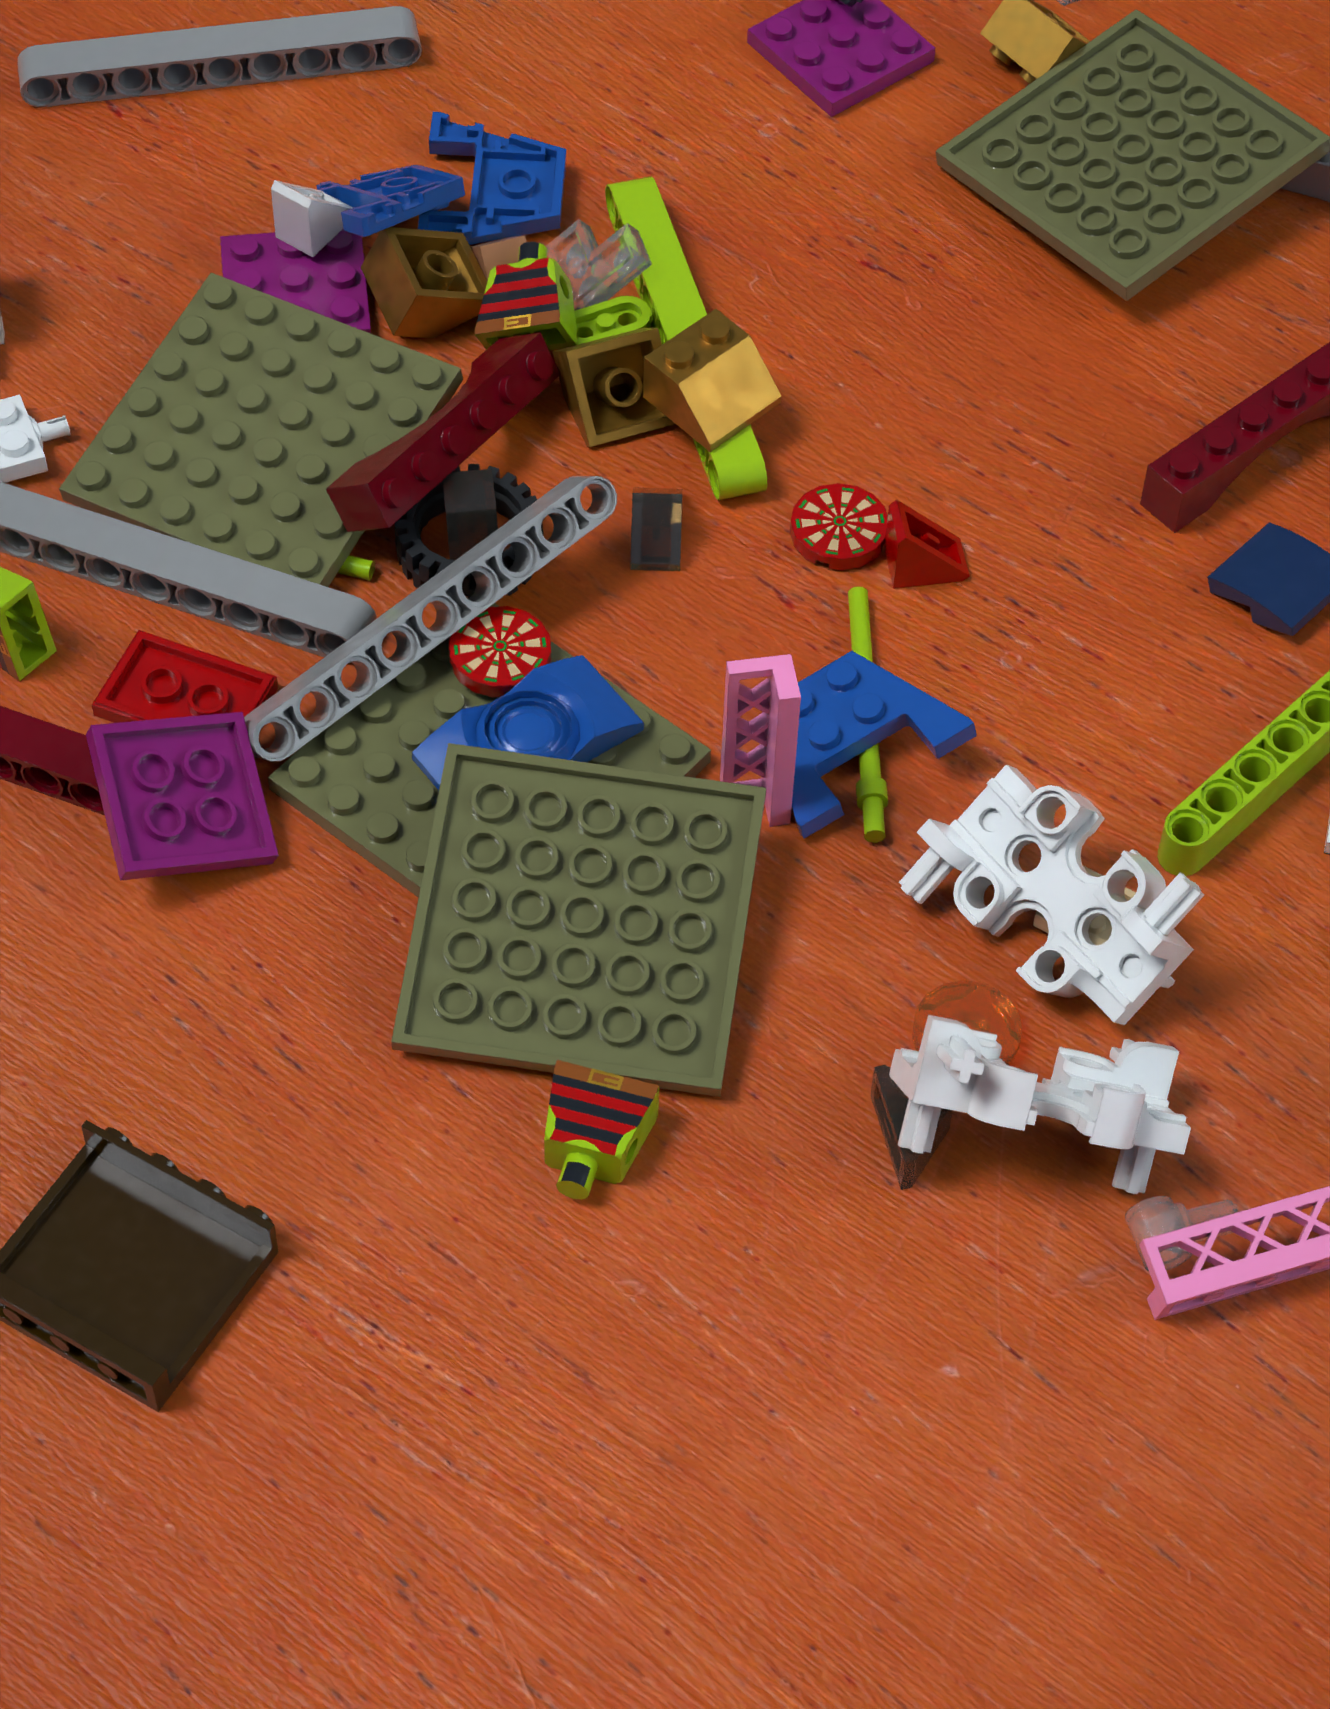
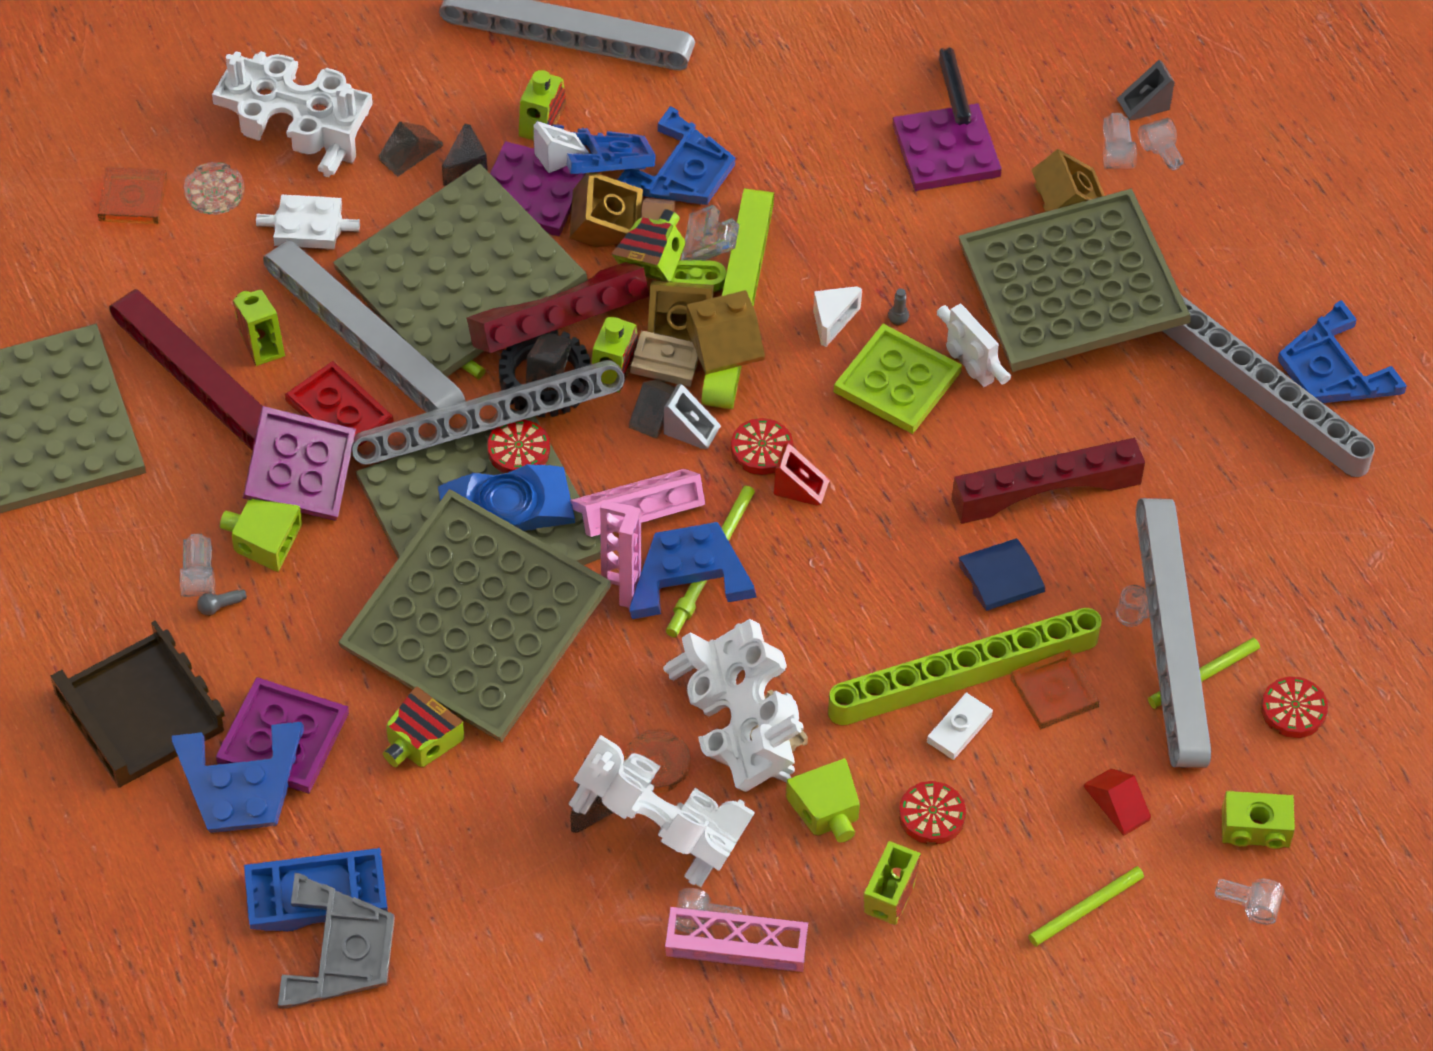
camera: 25 degrees right, 0 degrees up
(79, 293) = (408, 146): none -> clear smoke slope
(104, 1022) = (197, 572): none -> clear piece
(150, 1062) = (209, 603): none -> dark grey piece
(174, 919) = (263, 531): none -> lime torso
(177, 275) = (463, 156): none -> clear smoke slope
(246, 148) = (544, 97): none -> lime torso
(368, 1338) = (241, 792): none -> blue wing
(381, 1221) = (276, 704): none -> magenta plate
(555, 451) = (616, 343): none -> lime torso
(575, 1444) = (271, 886): none -> blue slope
(633, 451) = (664, 358): none -> tan plate
(689, 1510) = (353, 946): none -> flat silver wing
(692, 683) = (654, 496): none -> bright pink fence
(719, 525) = (688, 419): none -> light grey slope
(824, 307) = (834, 310): none -> white slope
(915, 280) = (899, 313): none -> dark grey piece
(971, 367) = (897, 378): none -> lime plate
(1055, 282) = (972, 345): none -> white plate
(1249, 989) = (826, 799): none -> lime torso

